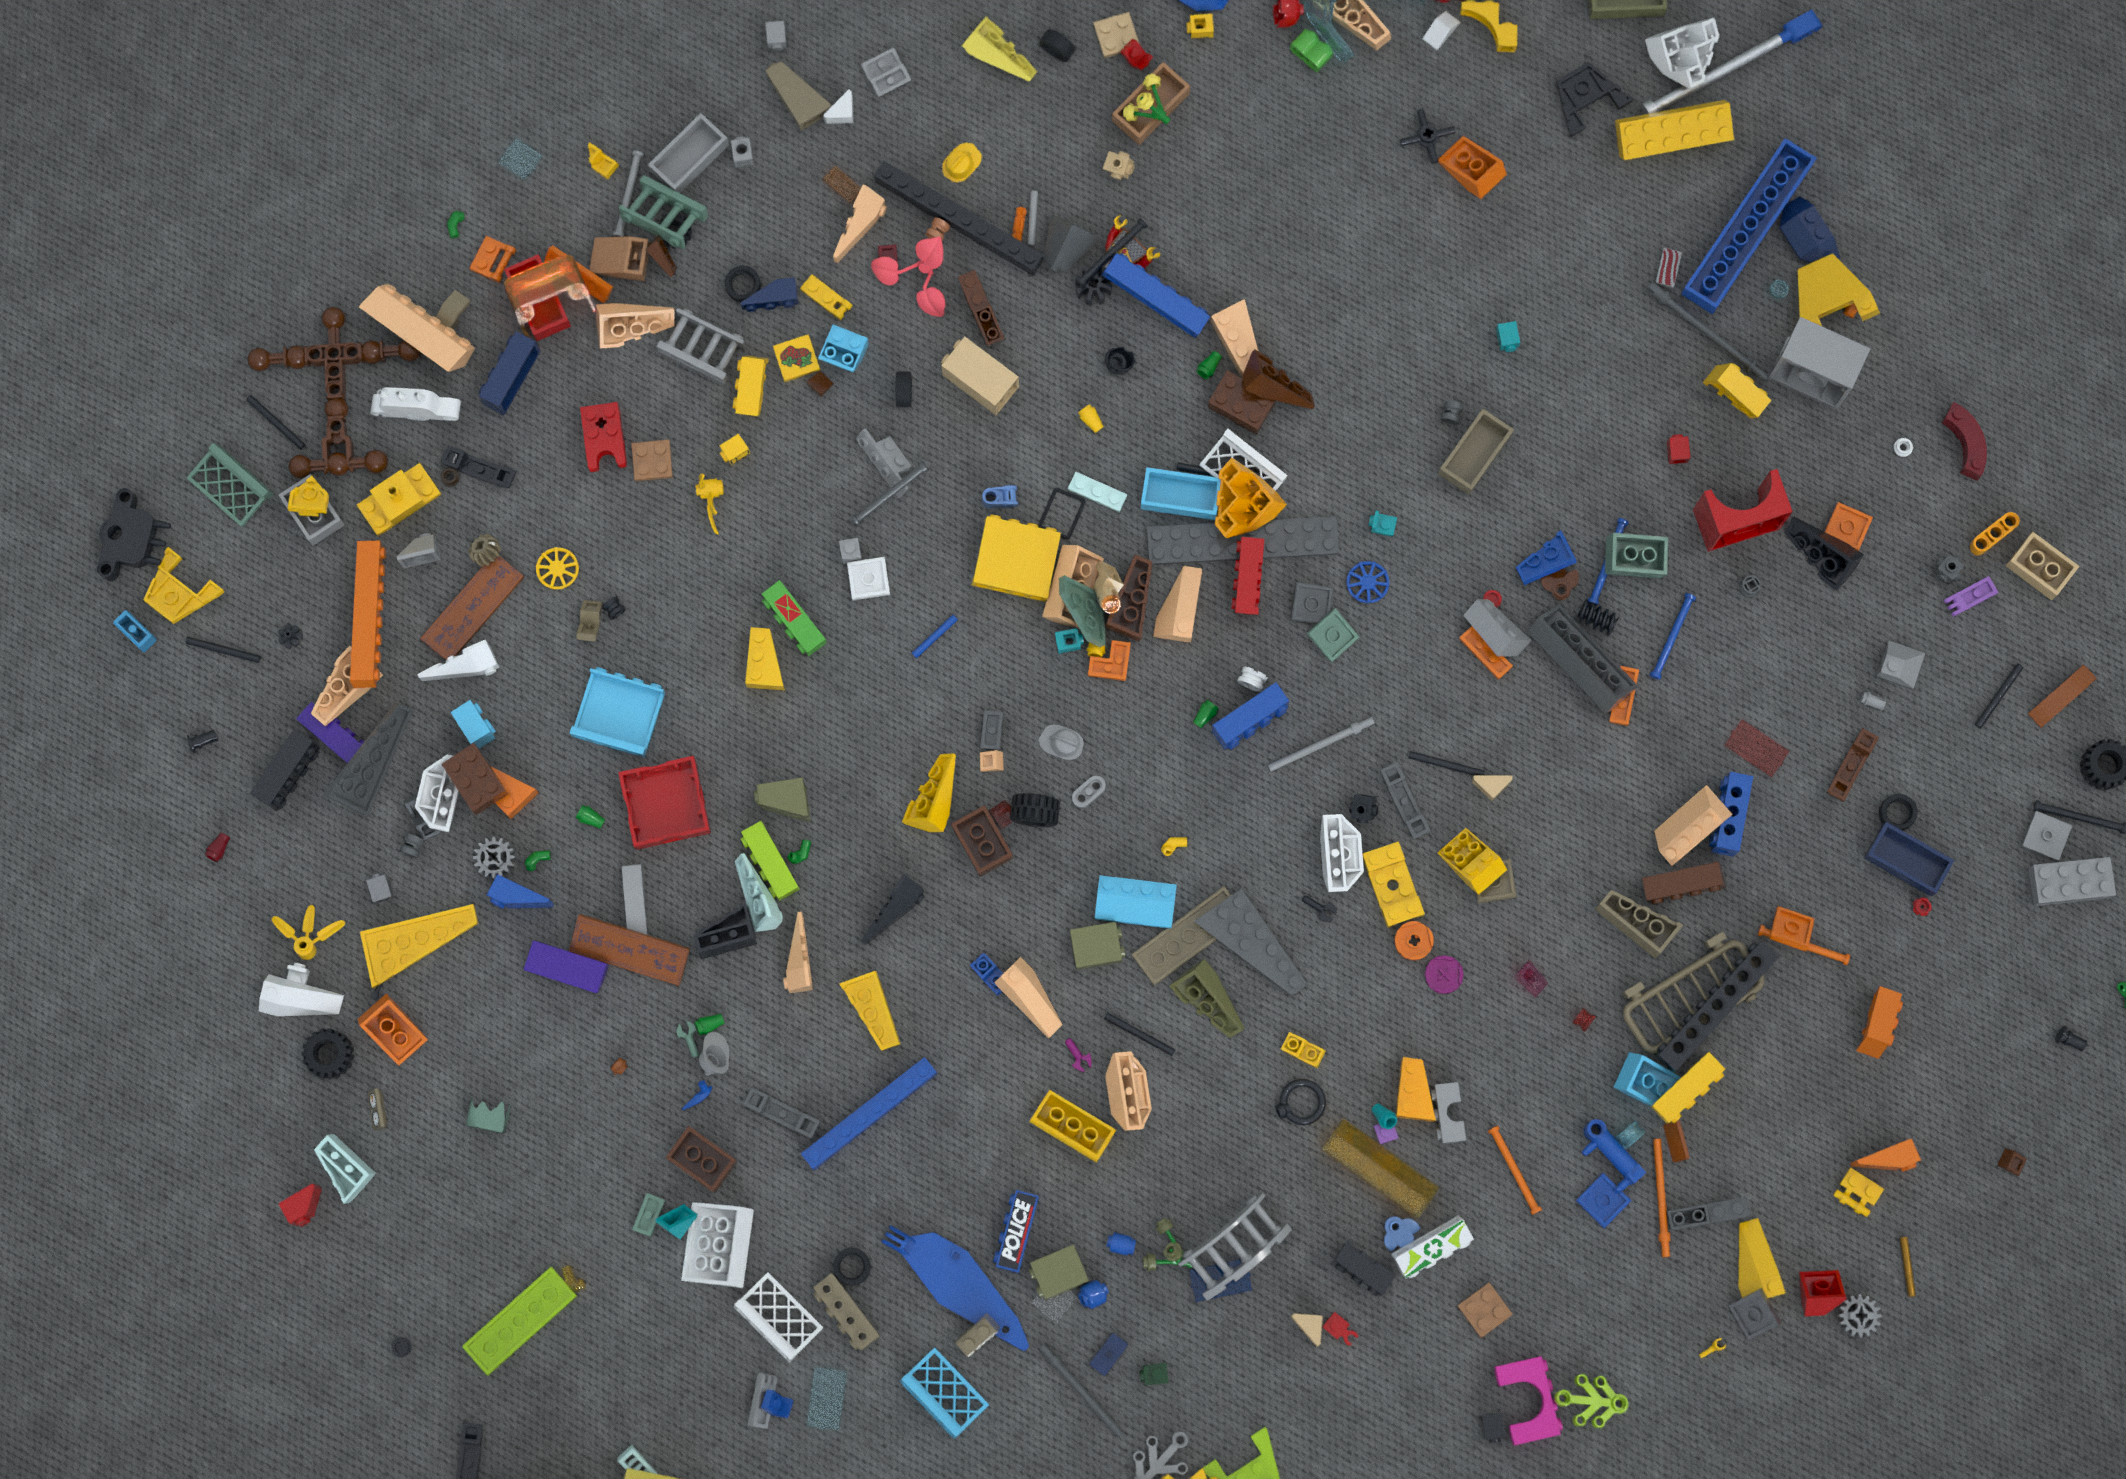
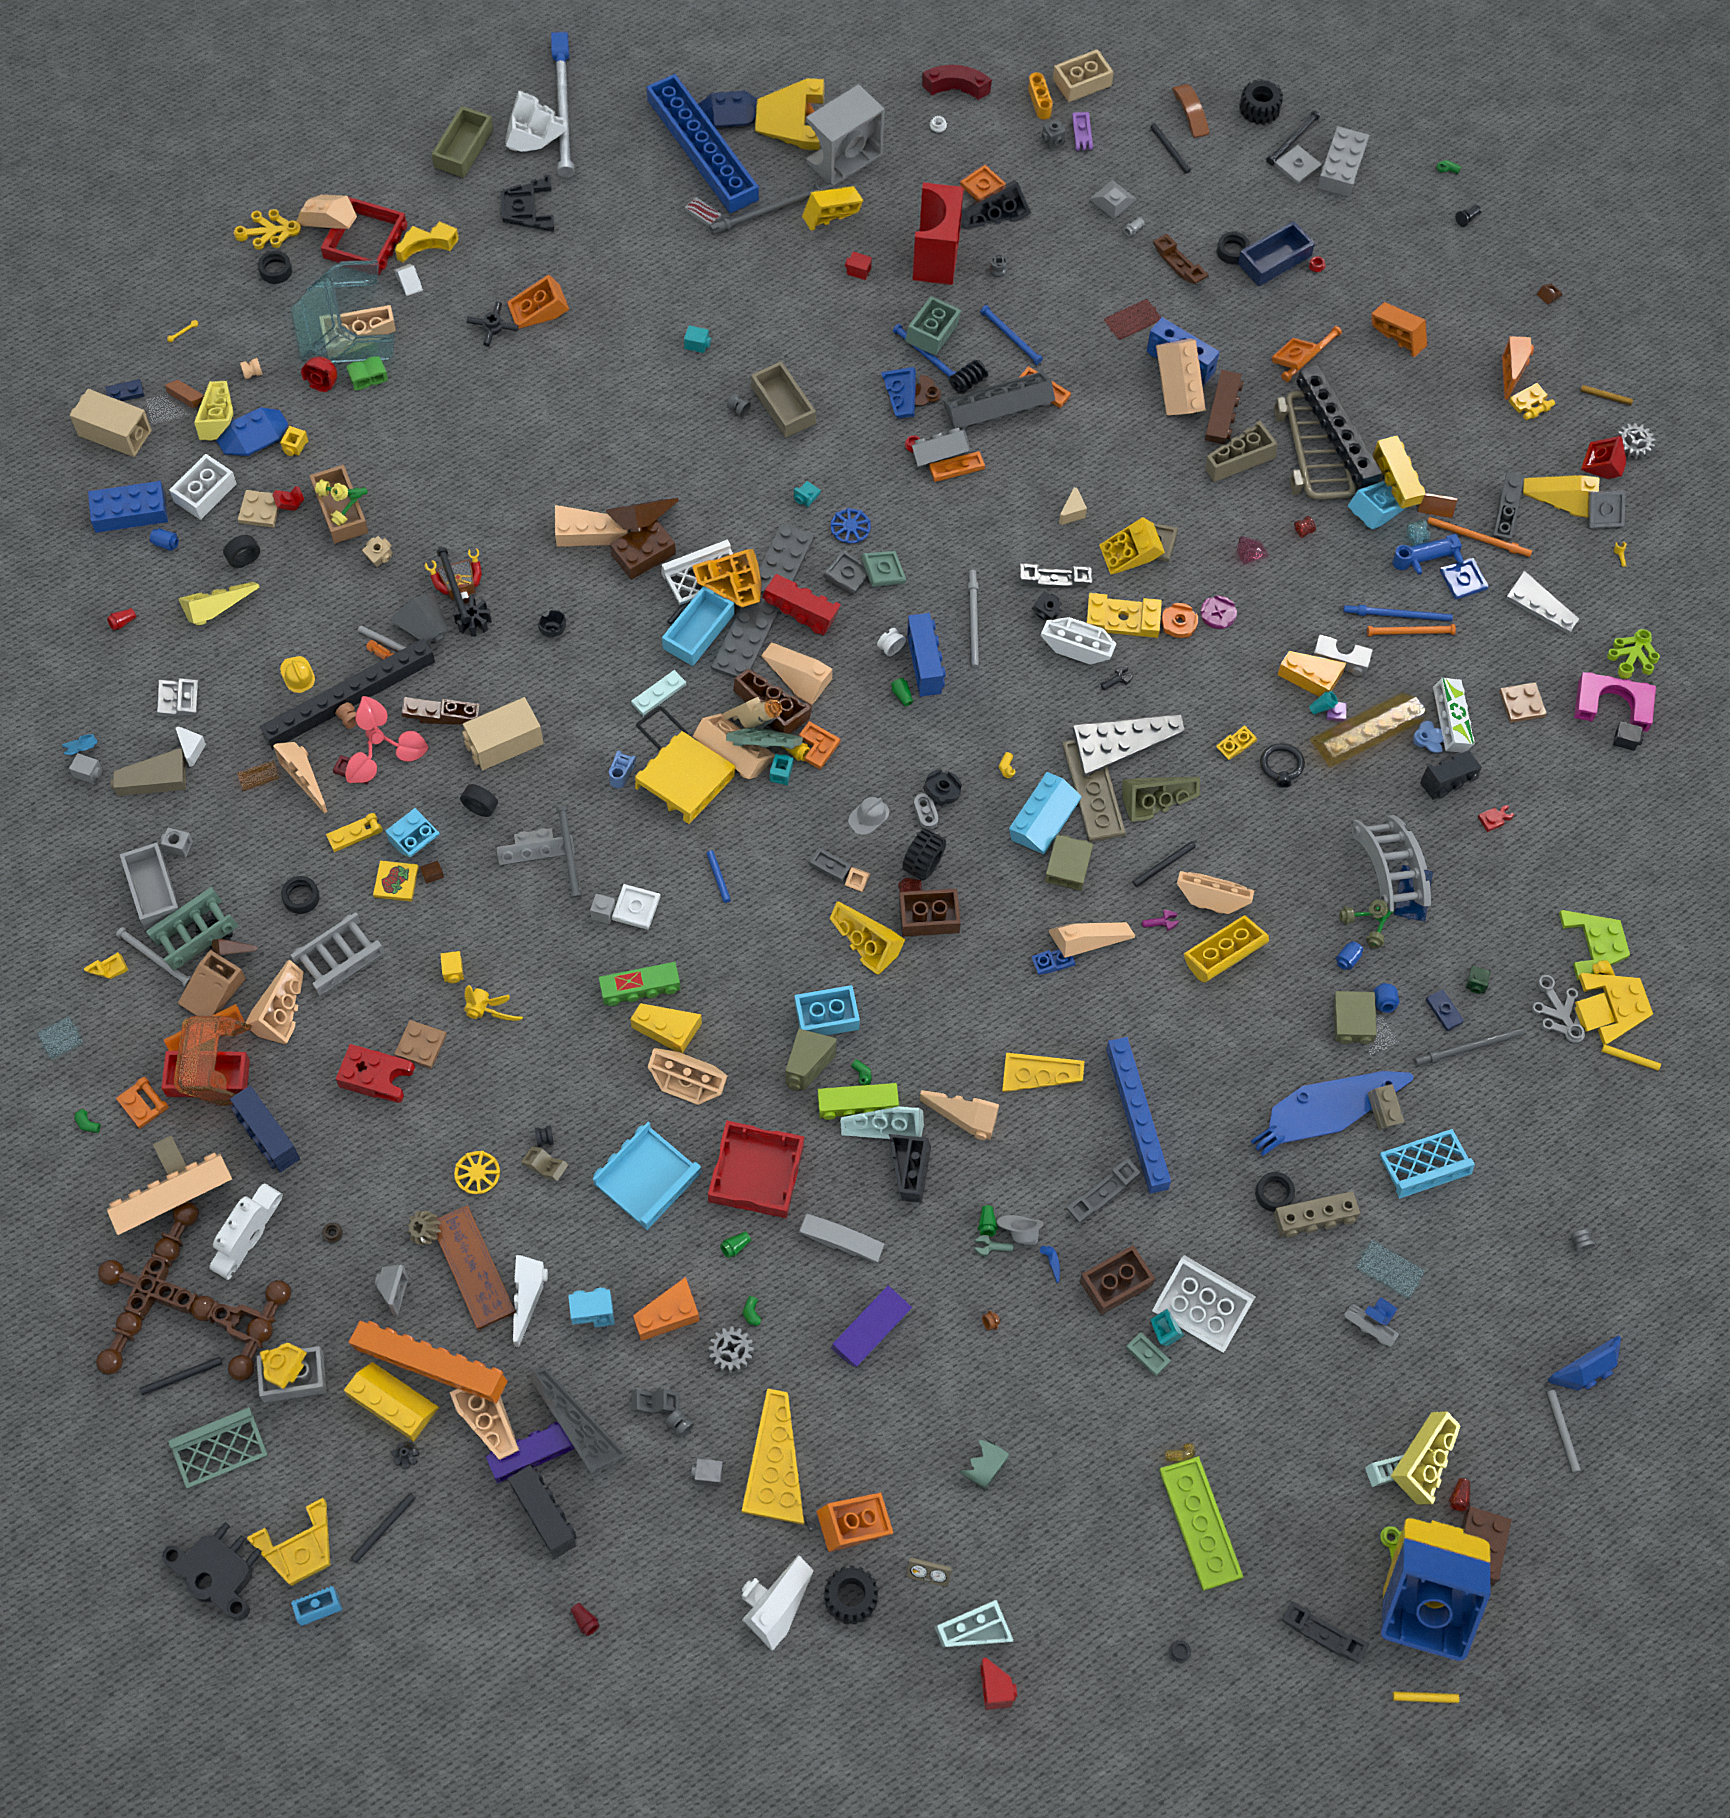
camera: 70 degrees left, 15 degrees down
(201, 740) = (465, 1588): black pin -> none
(304, 945) = (733, 1578): yellow plant -> none
(327, 601) = (391, 1400): none -> yellow slope
(398, 498) = (326, 1290): yellow brick -> none
(437, 796) = (642, 1367): white wedge -> none
(474, 779) = (649, 1323): reddish brown brick -> none
(478, 468) = (340, 1201): black slope -> none
(512, 895) = (777, 1343): blue slope -> none
(629, 949) = (882, 1261): dark orange tile -> none
(724, 701) = (686, 1076): none -> light nougat wedge
(750, 385) = (400, 925): yellow wedge -> none
(766, 1329) = (1302, 1294): white fence -> none
(777, 293) = (327, 868): dark blue slope -> none
(796, 17) = (84, 743): none -> dark azure plate
(840, 794) = (828, 1011): none -> medium azure brick
(903, 899) = (950, 1002): black wedge -> none
(1017, 1231) = (1301, 1036): brick -> none
(1090, 418) = (590, 668): yellow cone -> none
(1130, 794) = (938, 794): none -> black plate
(1156, 295) = (511, 569): blue brick -> none
(1208, 366) = (596, 561): green cone -> none
(1310, 1325) = (1486, 837): tan slope -> none
(1446, 764) = (1045, 527): black bar -> none
(1515, 1113) = (1362, 610): none -> blue bar
(1611, 1287) = (1539, 602): none -> wing
(1674, 129) = (593, 156): yellow brick -> none
(1779, 289) = (763, 148): clear light blue plate -> none

